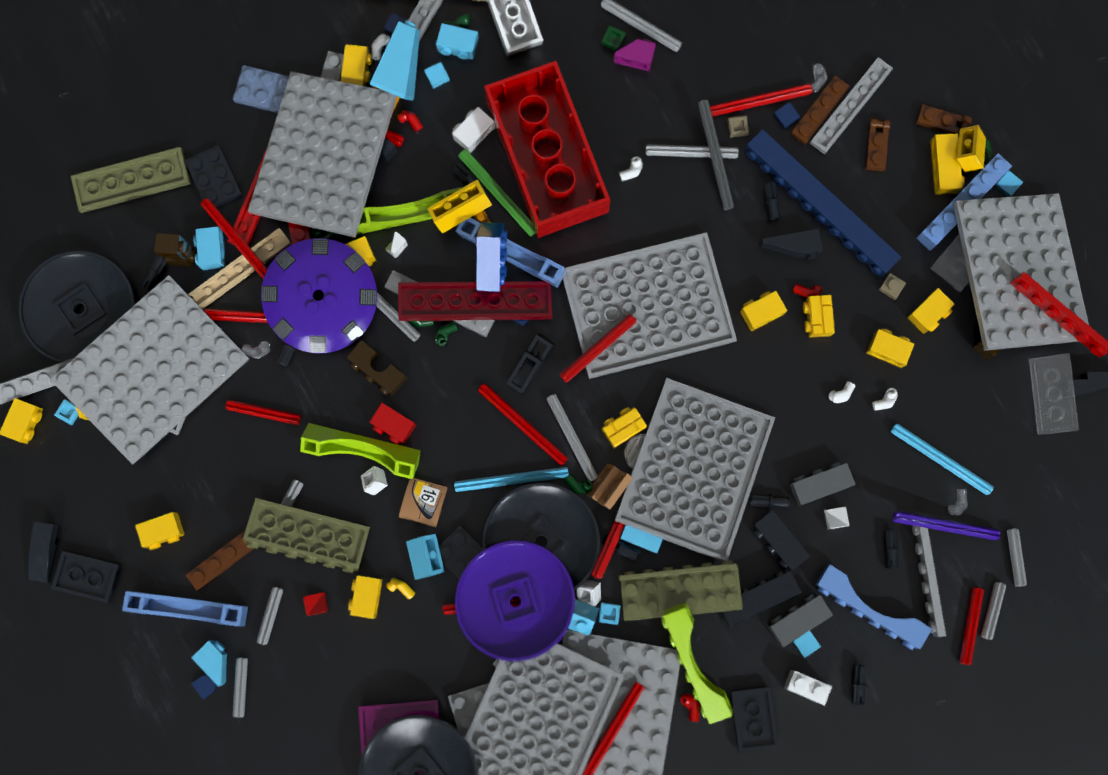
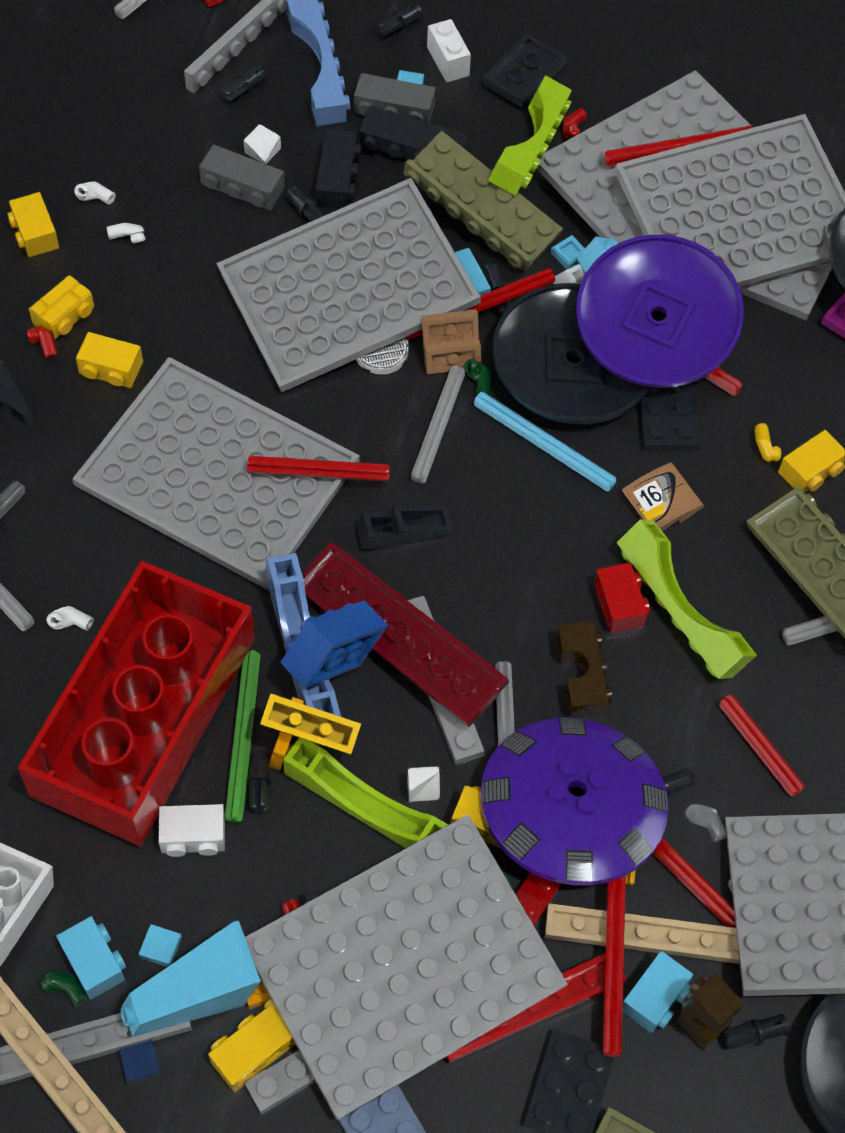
camera: 140 degrees left, 20 degrees down
(373, 480) = (697, 565): white slope -> none
(378, 44) = (188, 1057): white arm -> none
(410, 117) = (249, 913): red arm -> none
(425, 556) = (712, 441): medium azure brick -> none
(443, 333) = (475, 639): dark green arm -> none
(522, 424) = (477, 481): red axle -> none
(623, 427) = (375, 383): yellow brick -> none
(942, 459) = (107, 110): medium azure axle -> none
(946, 525) = (175, 51): dark purple axle -> none
(961, 503) = (135, 65): clear arm -> none

